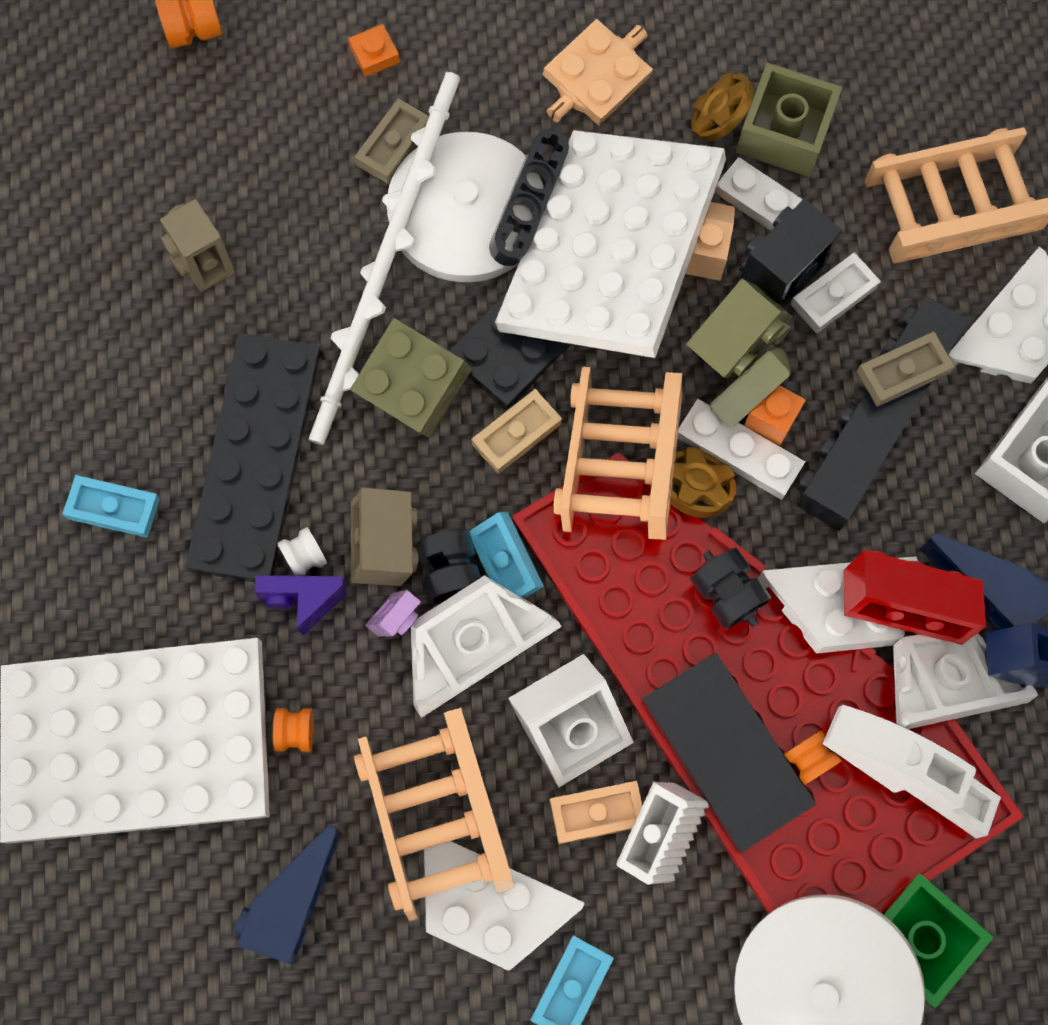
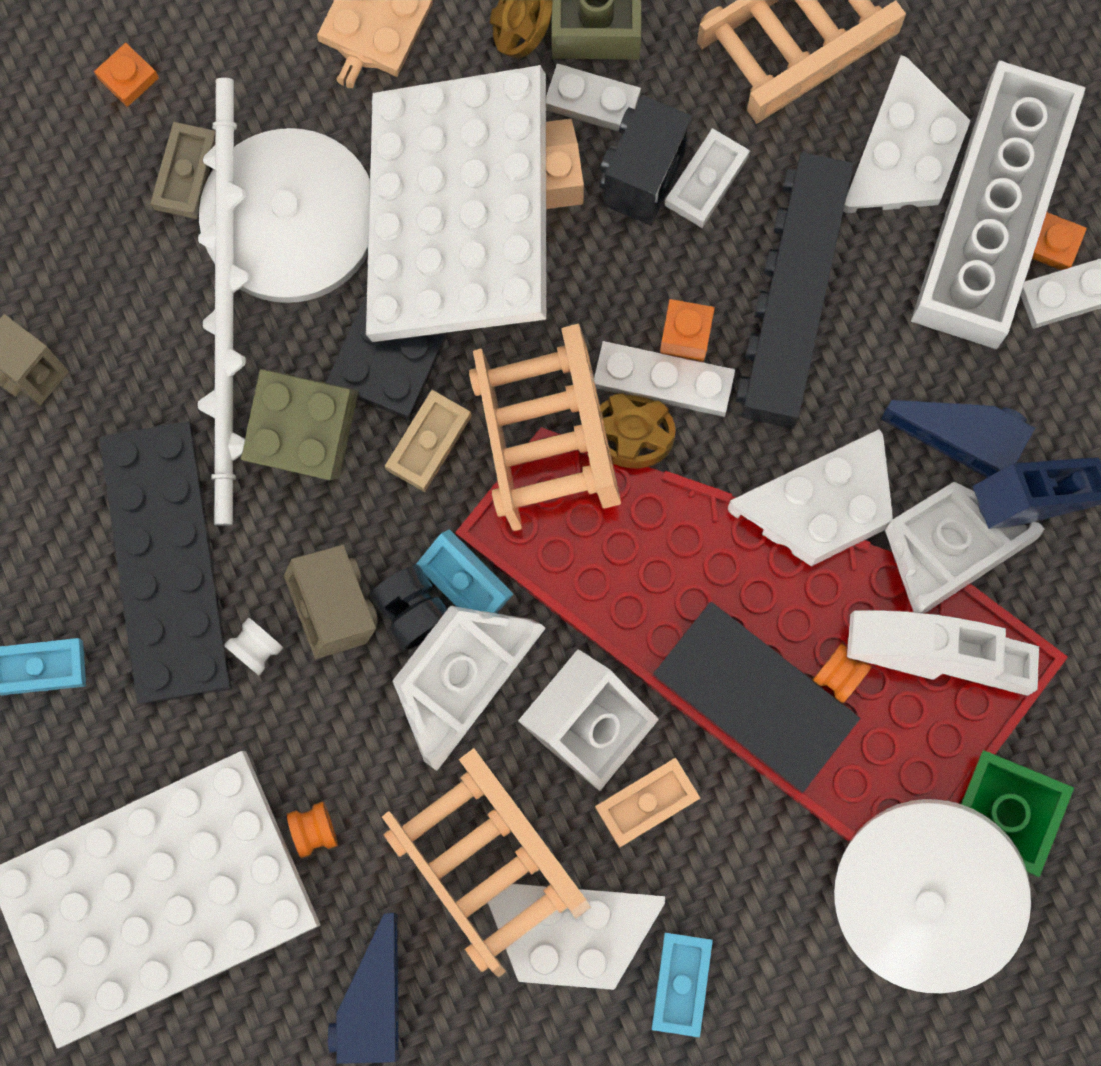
camera: 15 degrees left, 5 degrees up
(313, 594) = (281, 684): dark purple slope -> none
(394, 615) = (372, 677): lavender plate -> none
(531, 197) = (350, 184): black beam -> none
(662, 833) = (718, 801): white brick -> none
(730, 588) = (703, 531): black wheel -> none
(740, 330) = (623, 258): olive brick -> none
(752, 387) = (655, 313): olive slope -> none
(905, 368) = (805, 240): dark tan plate -> none
(913, 597) = (889, 476): red brick -> none

